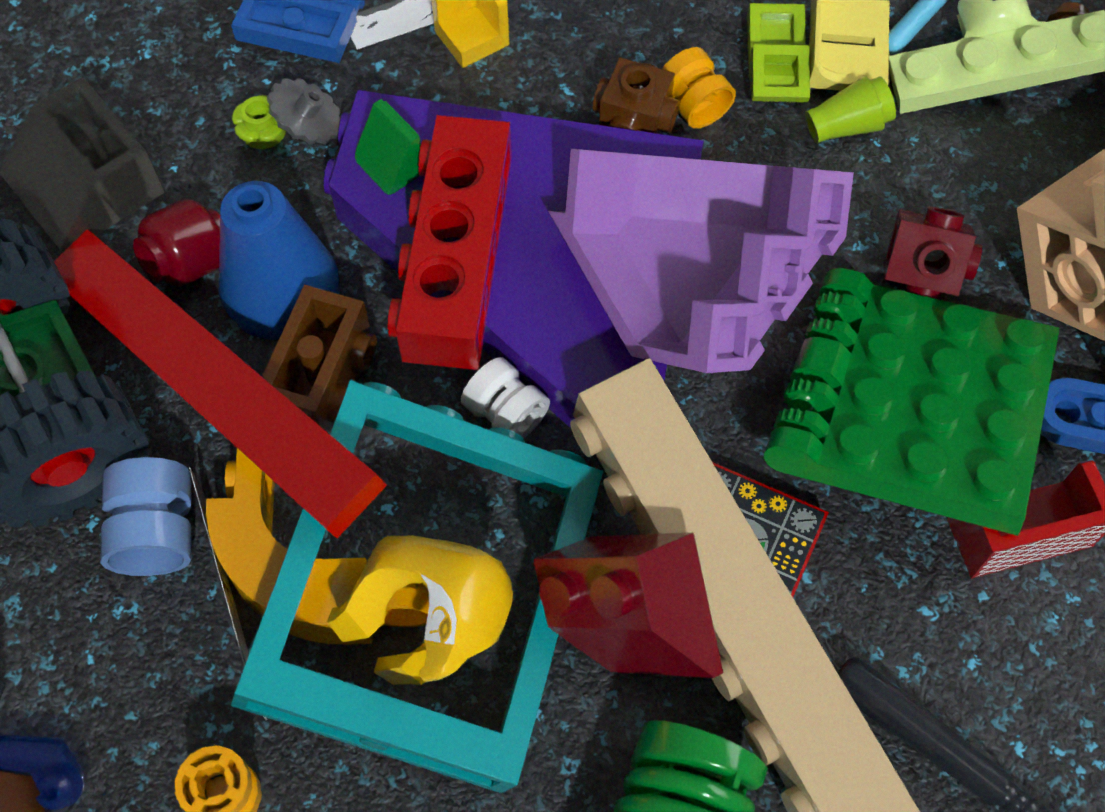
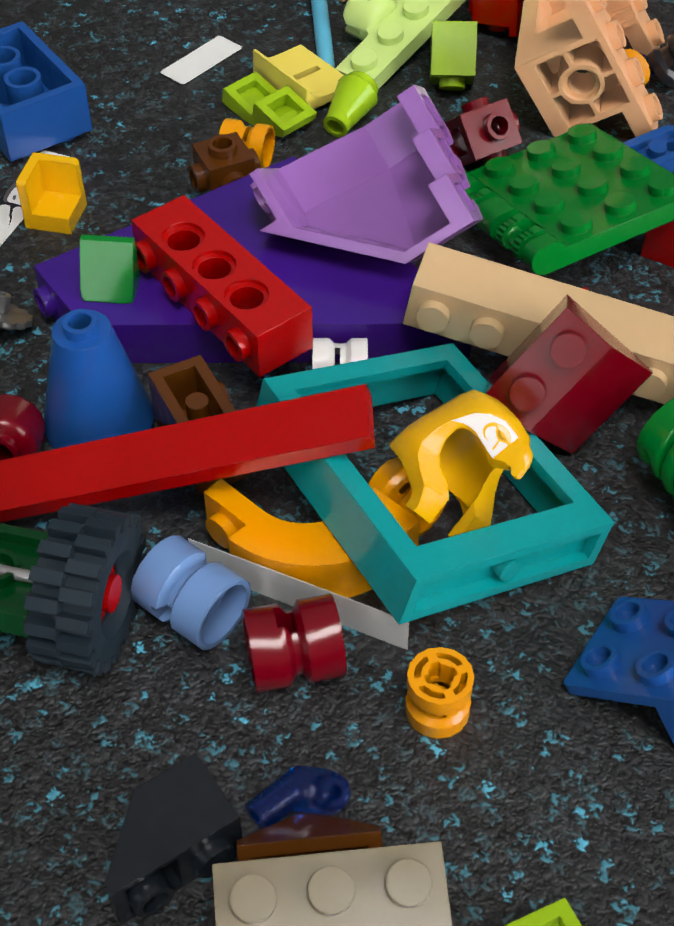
camera: 45 degrees left, 15 degrees down
(157, 632) = (294, 642): none -> dark red wheel
(1020, 130) = (453, 54): none -> lime slope

